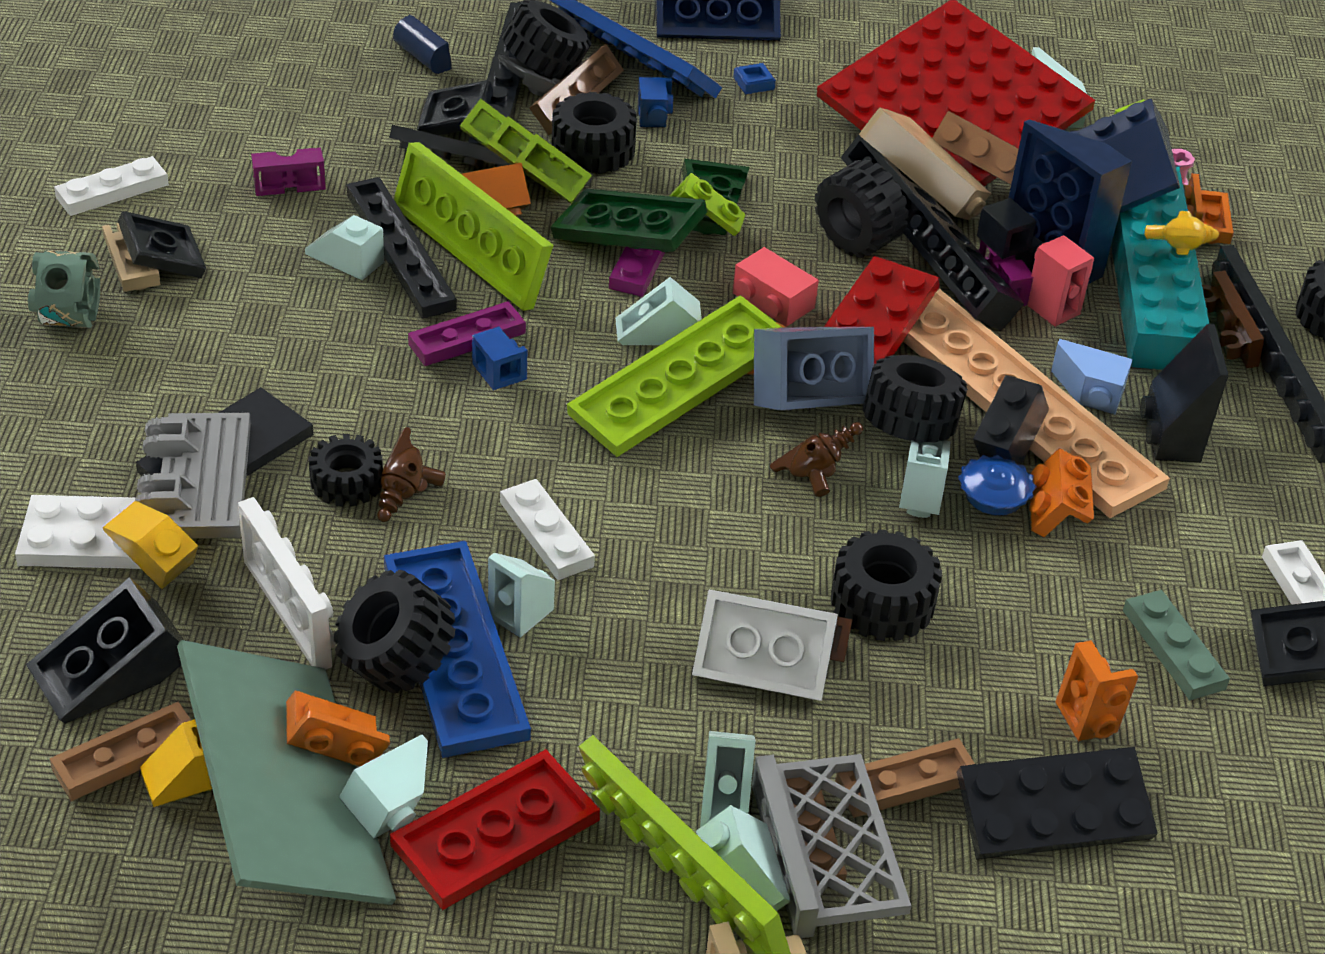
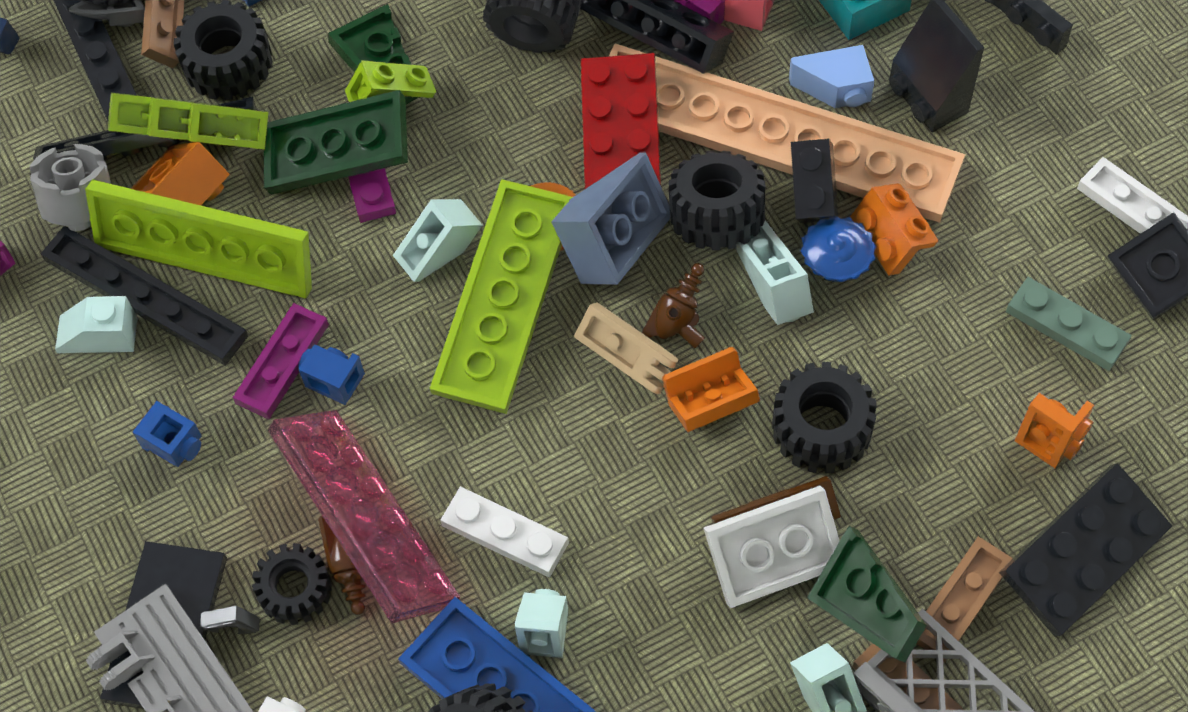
camera: 25 degrees left, 20 degrees up
(279, 464) = (230, 617): none -> dark grey tile
(339, 341) = (162, 426): none -> blue brick
(390, 146) = (61, 183): none -> light grey brick
(440, 450) = (363, 515): none -> clear pink plate
(449, 106) = (70, 95): black tile -> none
(753, 458) = (625, 347): none -> tan hinge
(775, 286) = (509, 137): coral brick -> none
(802, 518) = (709, 389): none -> orange bracket
(816, 716) = (867, 598): none -> dark green wing

